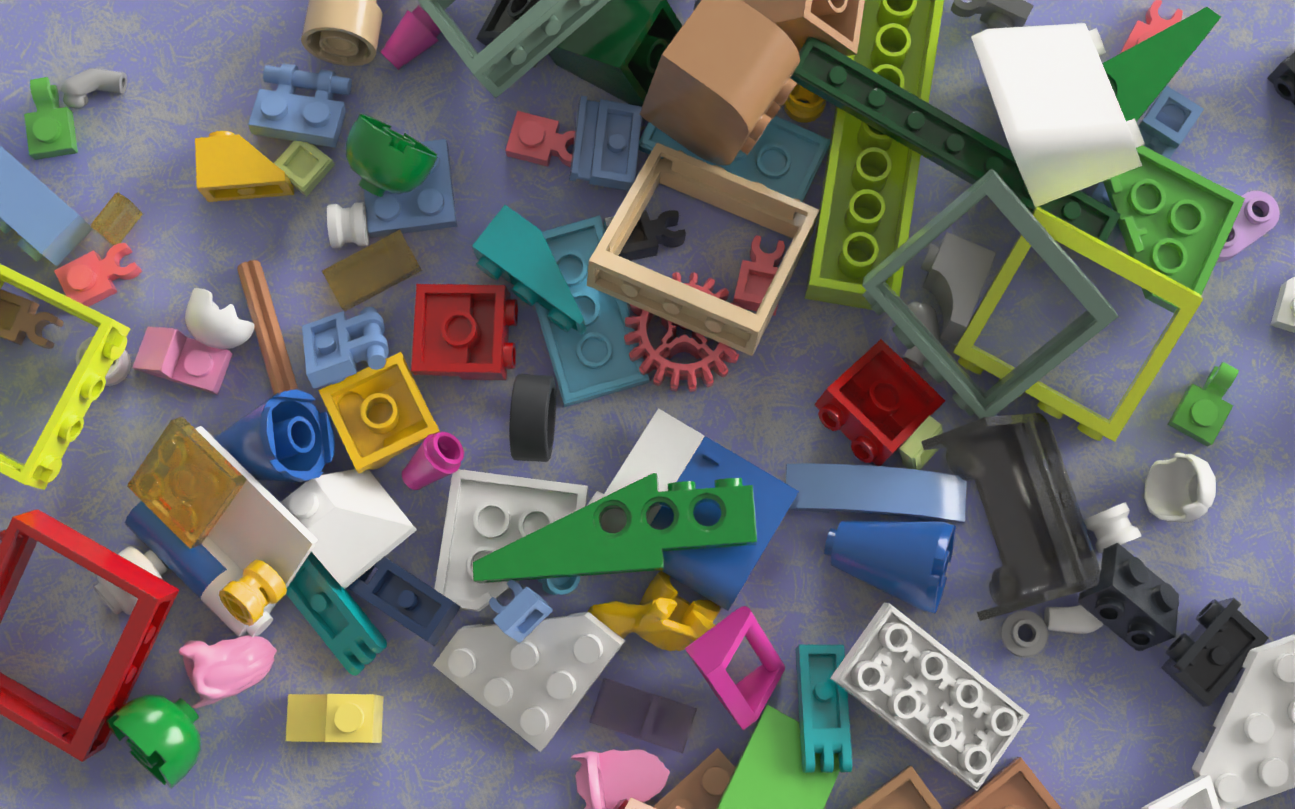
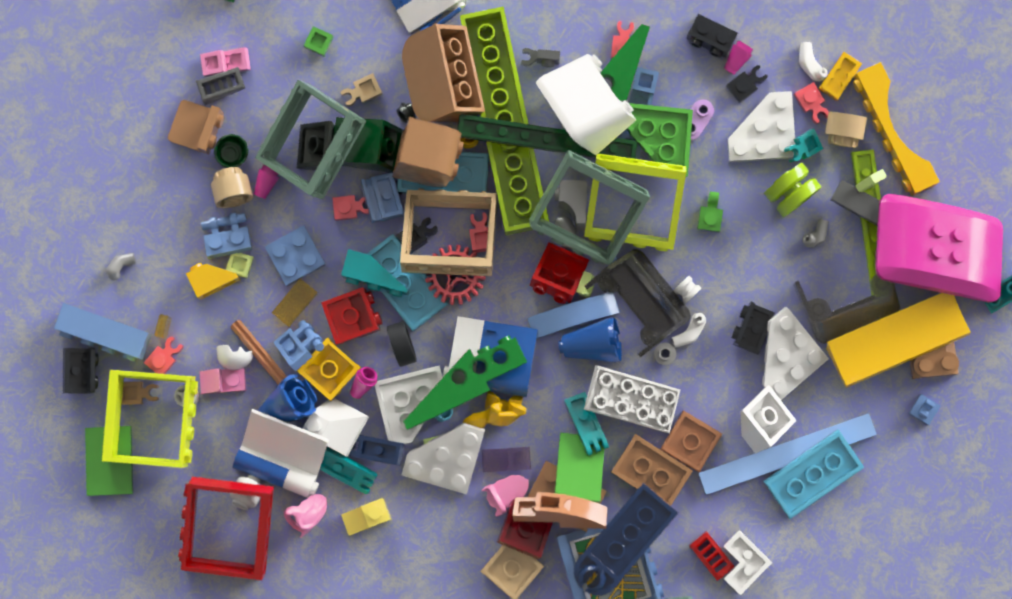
camera: 20 degrees left, 5 degrees up
(50, 128) = (108, 294): bright green plate -> none
(159, 735) = (291, 556): green cylinder -> none
(186, 482) = (256, 437): clear yellow plate -> none
(252, 592) = (308, 474): yellow wheel -> none
(347, 225) = (275, 285): white wheel -> none
(386, 157) = (283, 248): green cylinder -> none
(522, 613) = (434, 436): medium blue tile -> none
(714, 652) = (527, 418): dark pink tile -> none
(1132, 600) = (707, 319): black bracket -> none
(1180, 488) = (711, 259): white hair -> none

